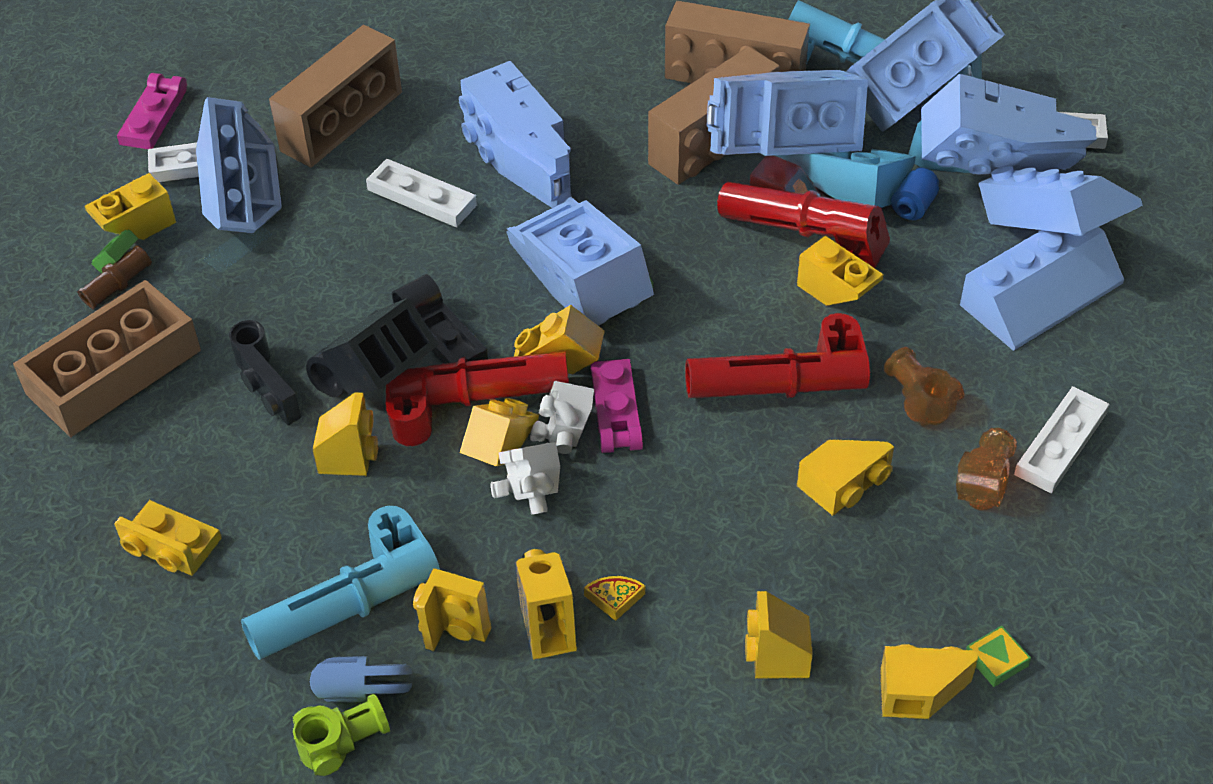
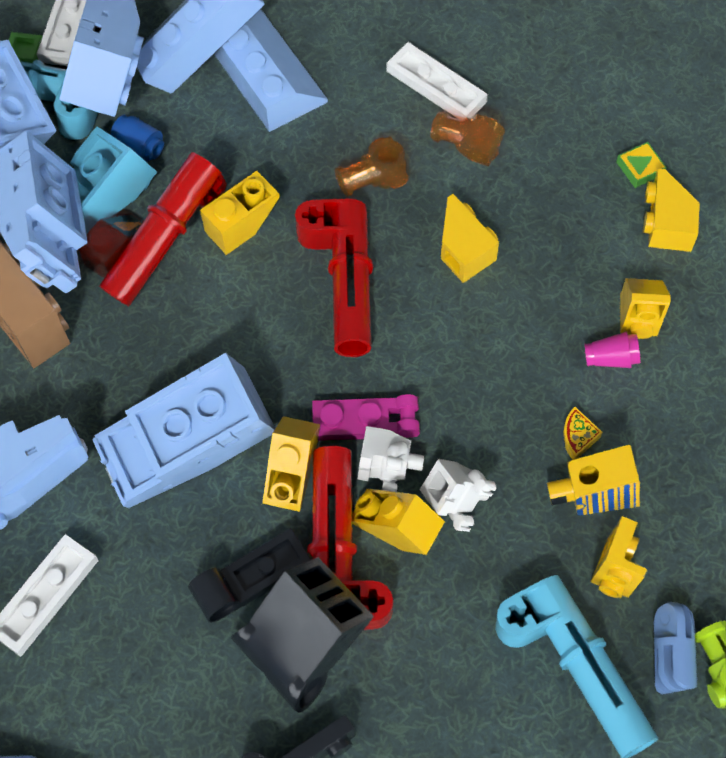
camera: 85 degrees left, 15 degrees up
(344, 438) = (404, 662): yellow slope -> none
(720, 624) = (614, 351): none -> dark pink cone

